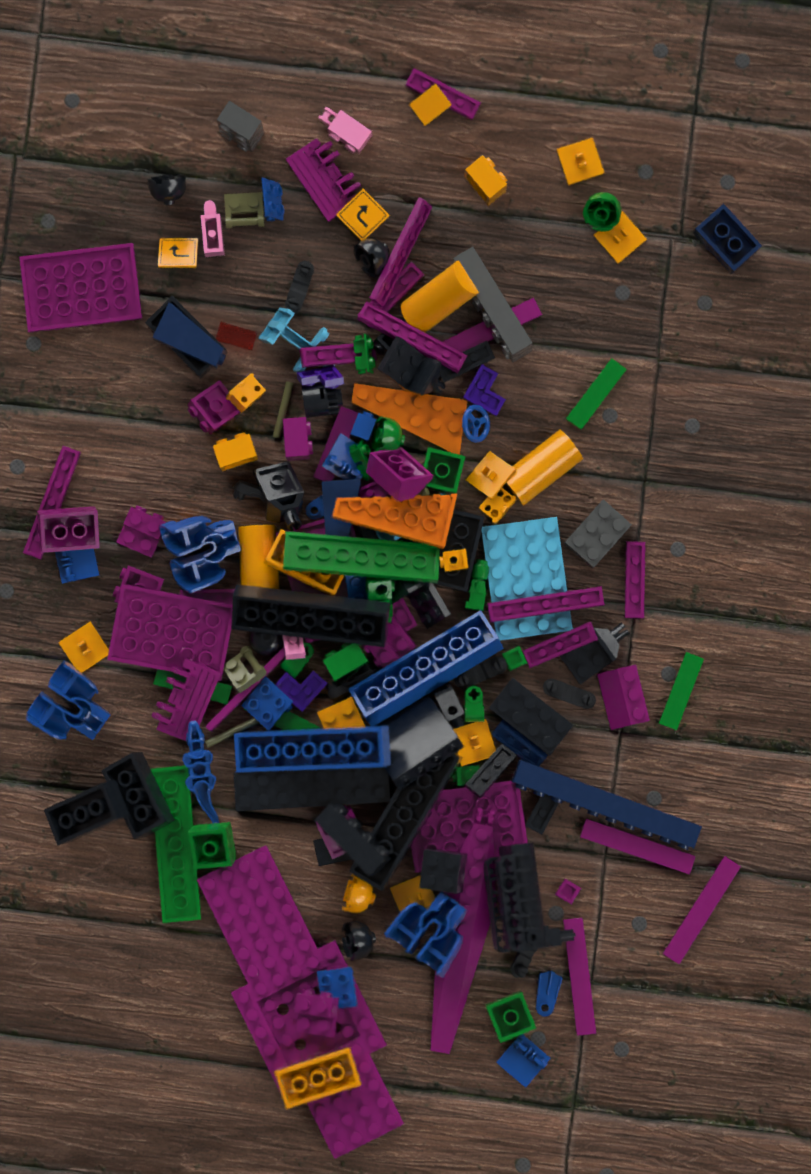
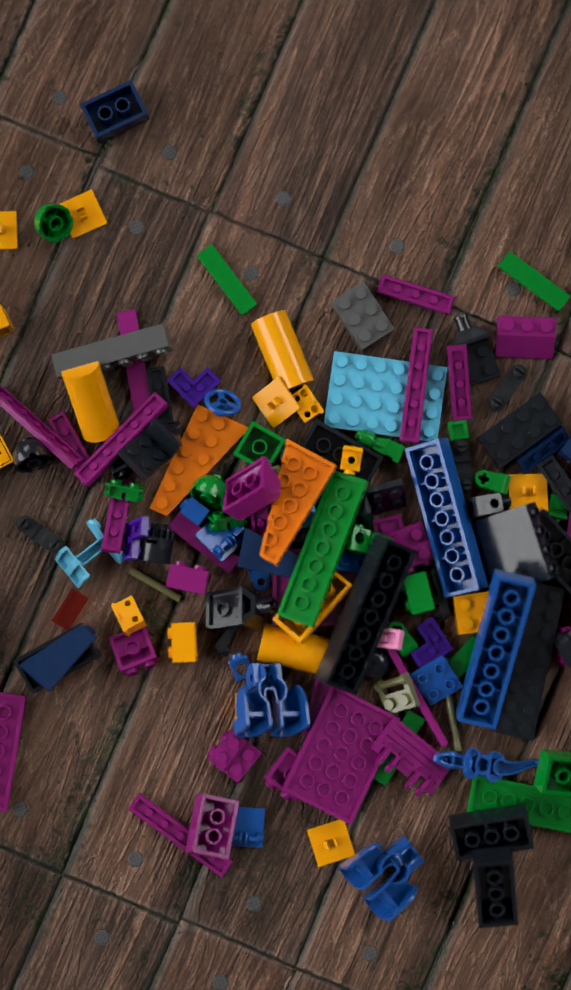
camera: 70 degrees left, 0 degrees up
(232, 507) = (238, 659): none -> blue bracket

